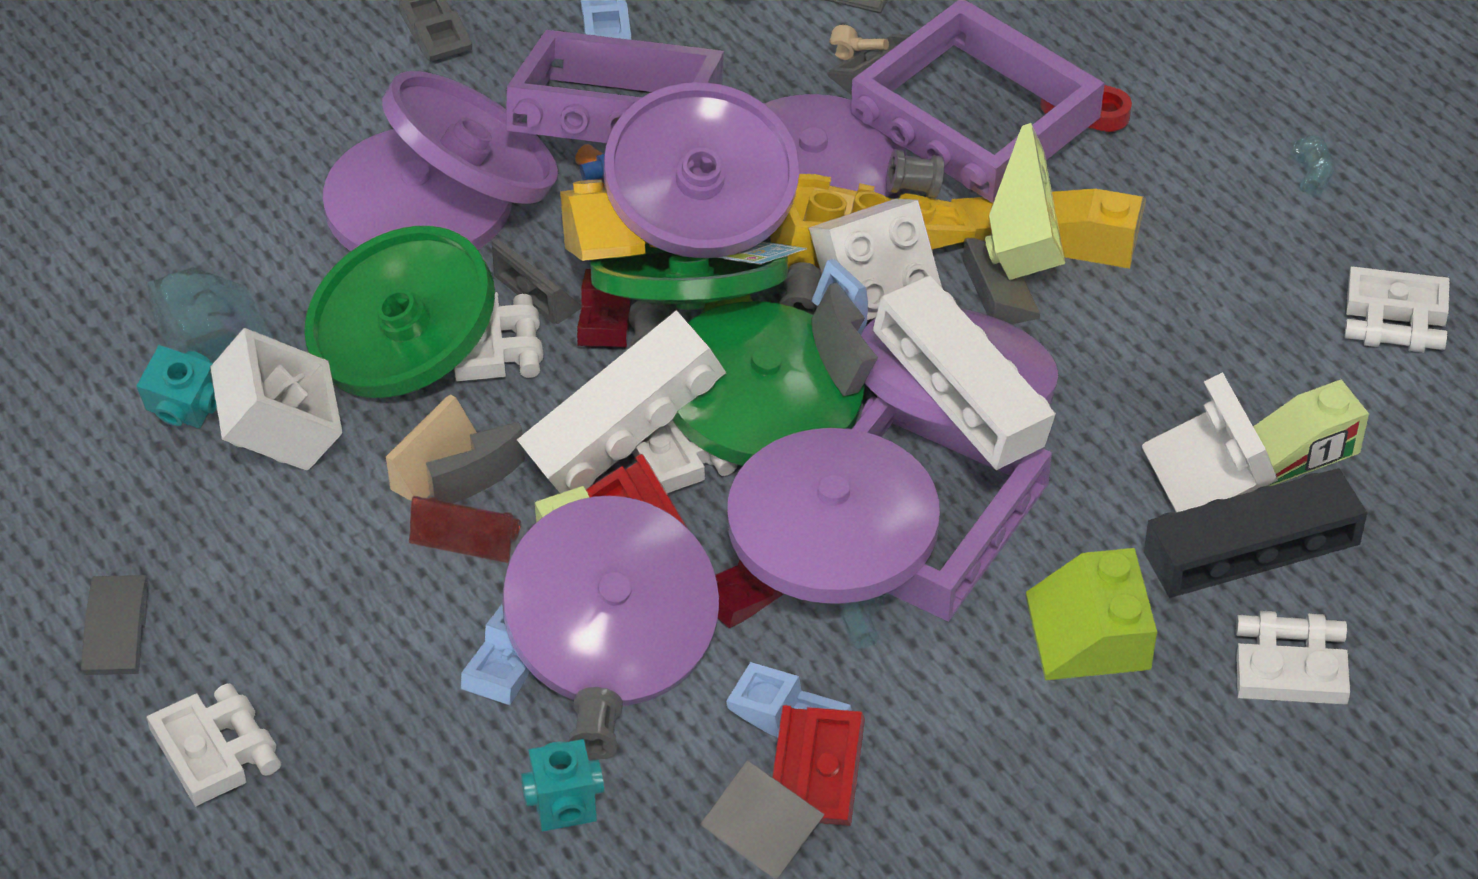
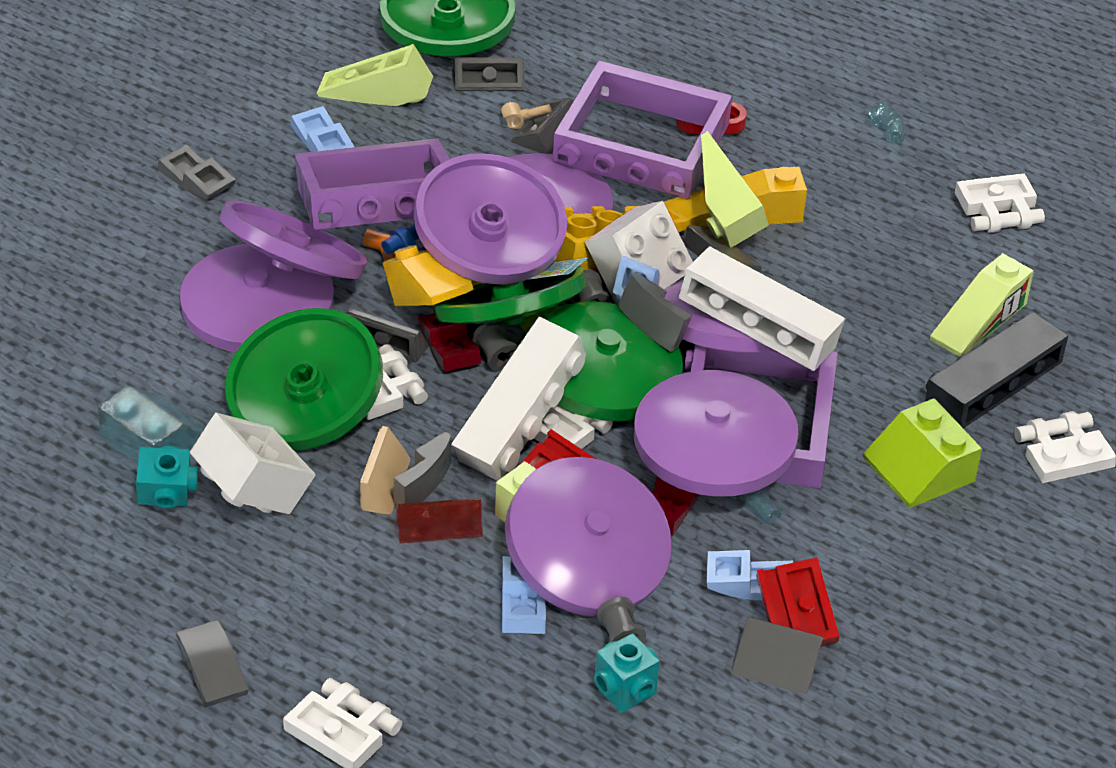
camera: 25 degrees left, 5 degrees down
(915, 173) = (630, 189): dark grey bush -> none
(1211, 454) = (943, 323): white bracket -> none

